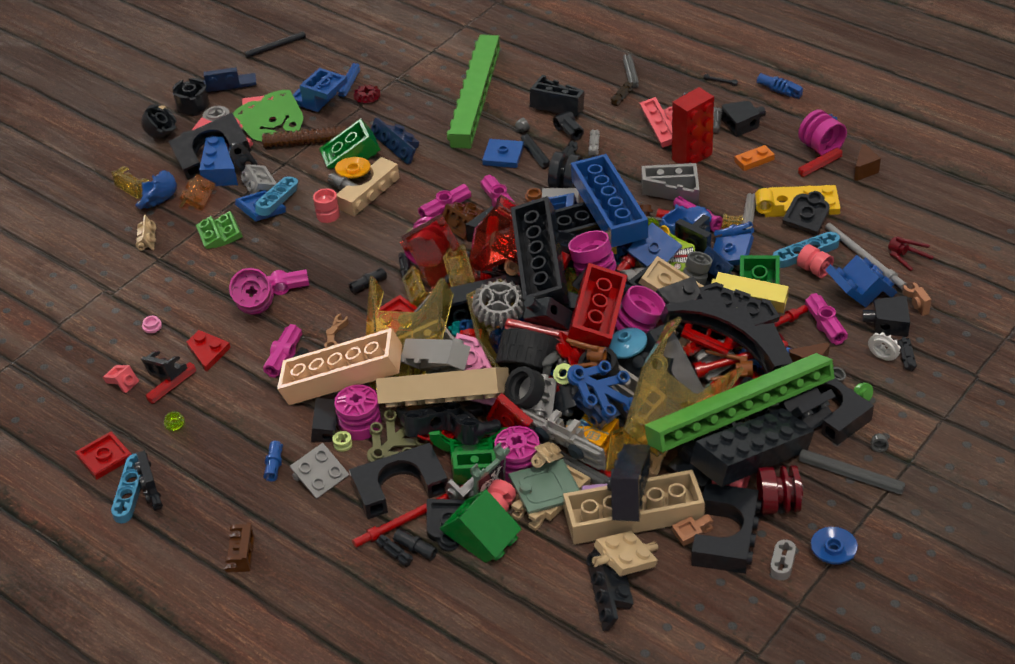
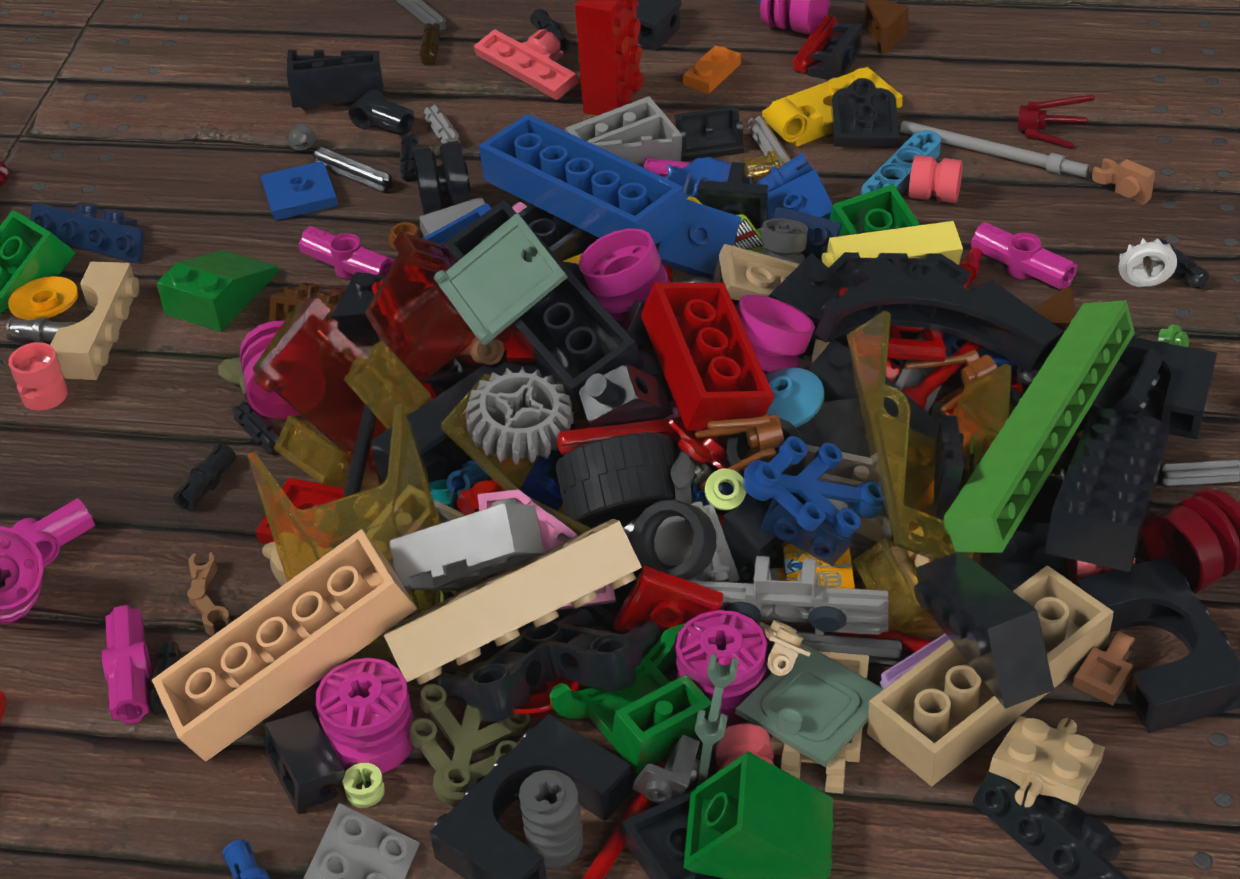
camera: 30 degrees left, 0 degrees up
(399, 485) = (552, 817): none -> dark grey piece
(423, 186) = (213, 287): none -> green slope
(444, 197) = (254, 298): dark pink piece -> none
(474, 92) = (180, 116): bright green brick -> none
(520, 234) = (496, 283): none -> sand green container
(685, 396) = (947, 465): none -> black wing
(720, 194) = (710, 133): none -> black hinge
(826, 173) = (838, 54): none -> black hinge
(862, 280) = (1032, 180): blue bracket -> none
(889, 316) = (1111, 218): black torso -> none

